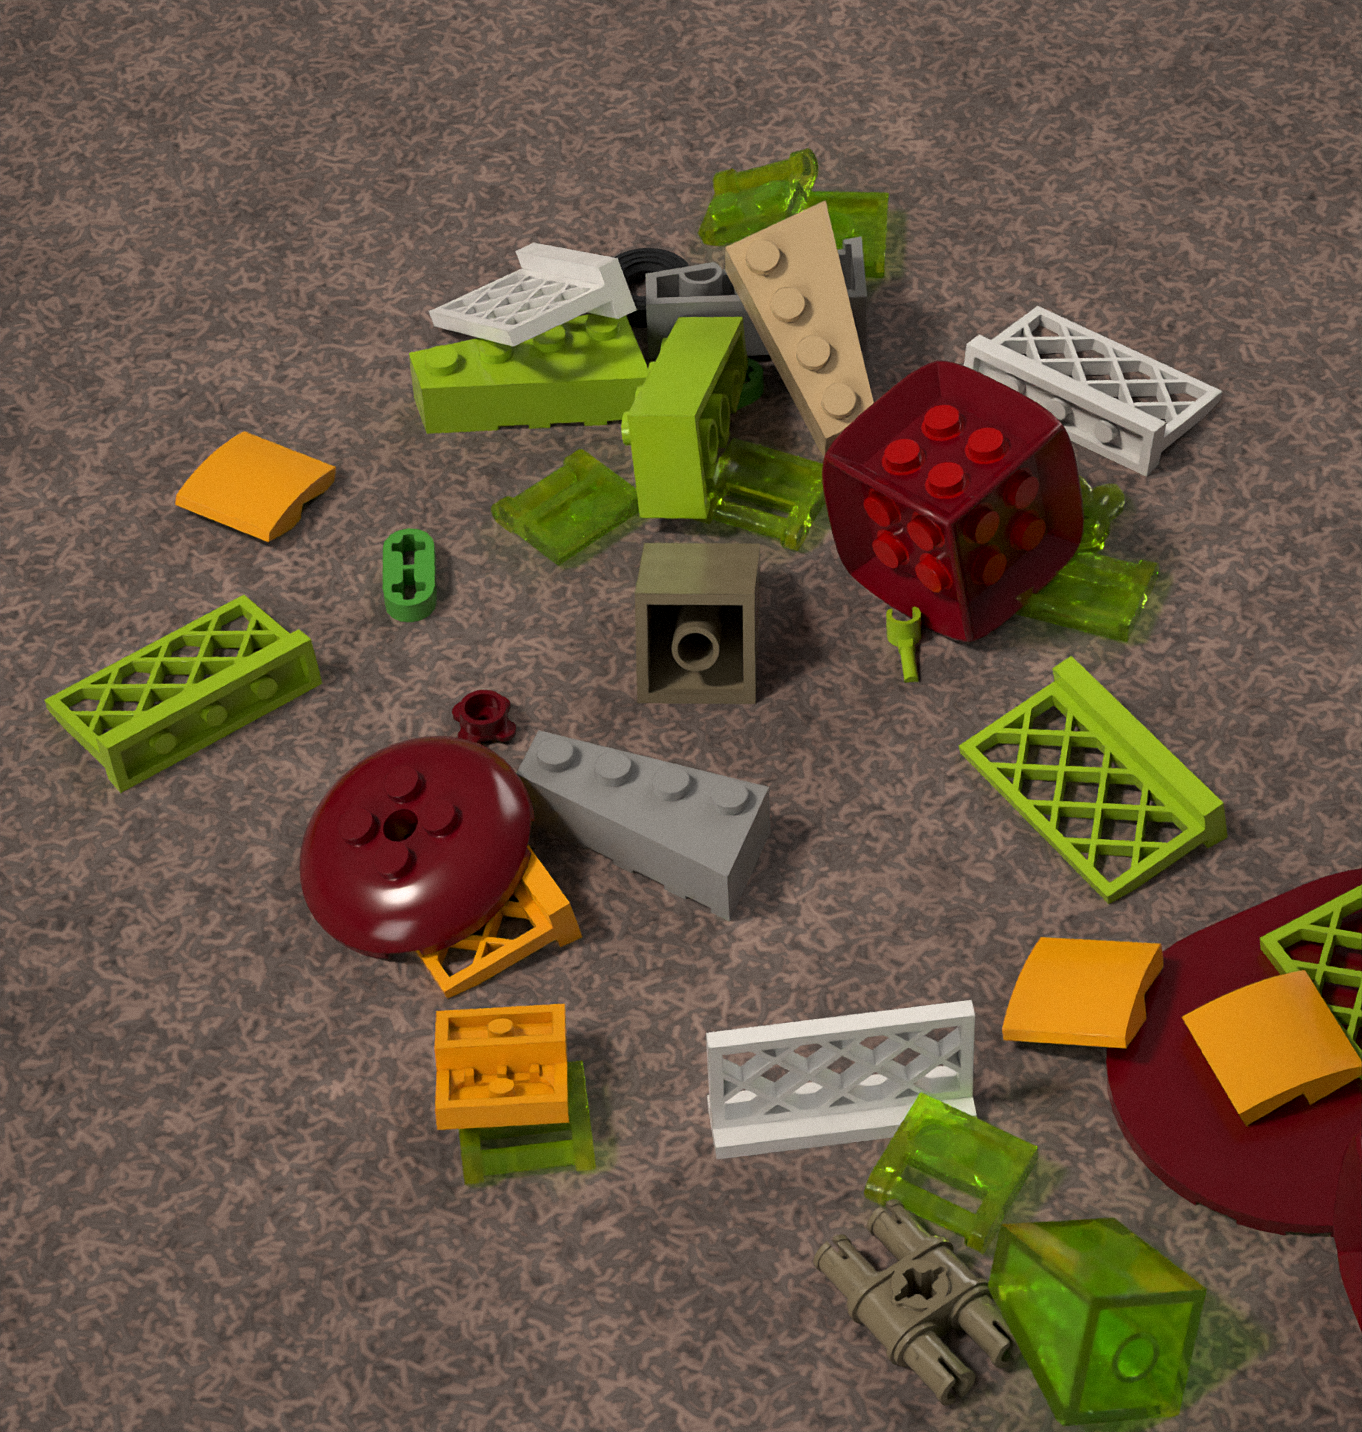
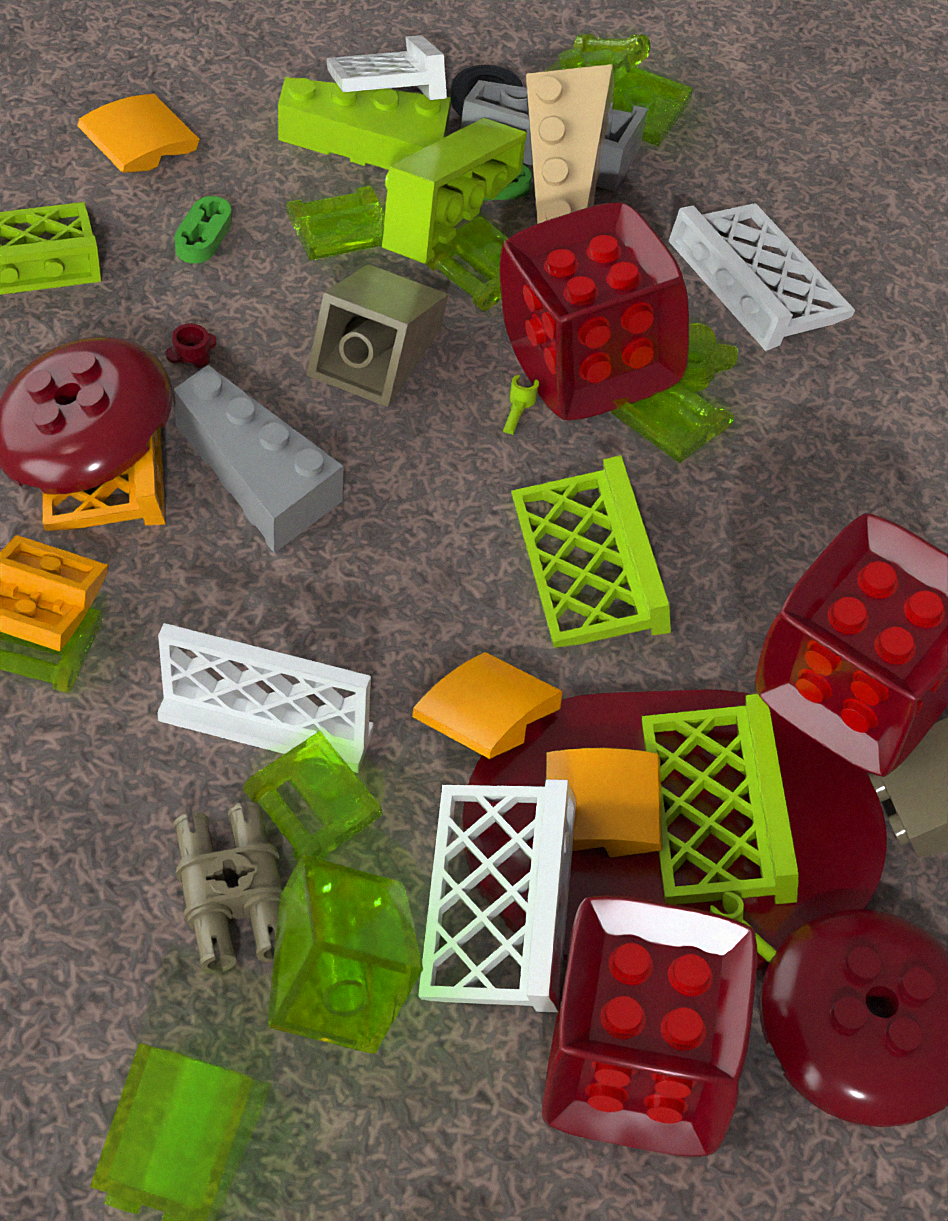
camera: 15 degrees right, 5 degrees up
(1275, 1161) = (546, 903): none -> white fence

